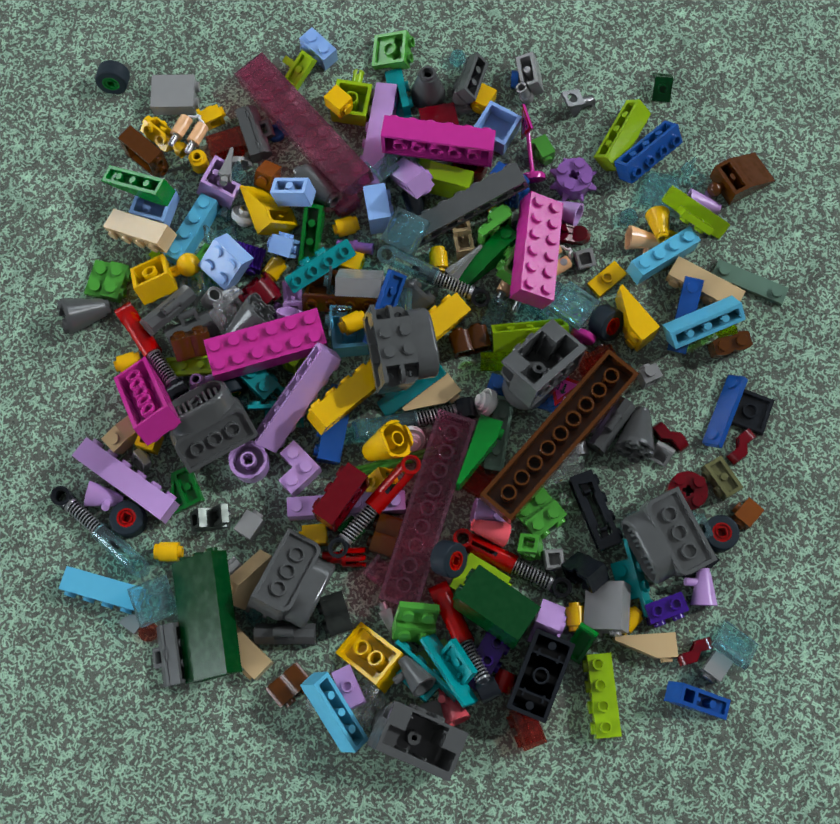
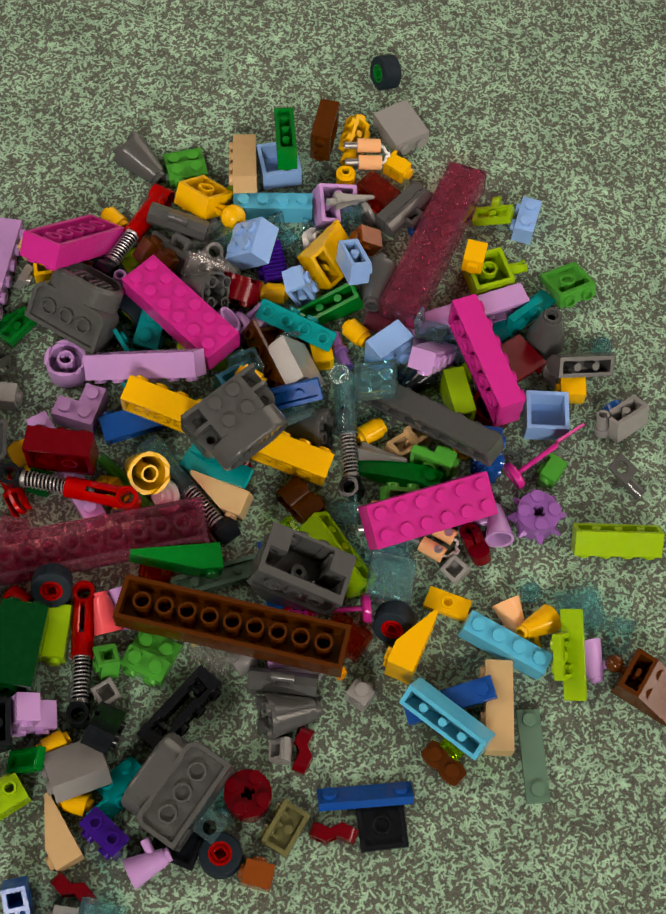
camera: 55 degrees right, 10 degrees down
(385, 535) = (48, 515): reddish brown brick -> none
(486, 402) = (241, 546): white plate -> none
(648, 151) = (614, 574): blue brick -> none

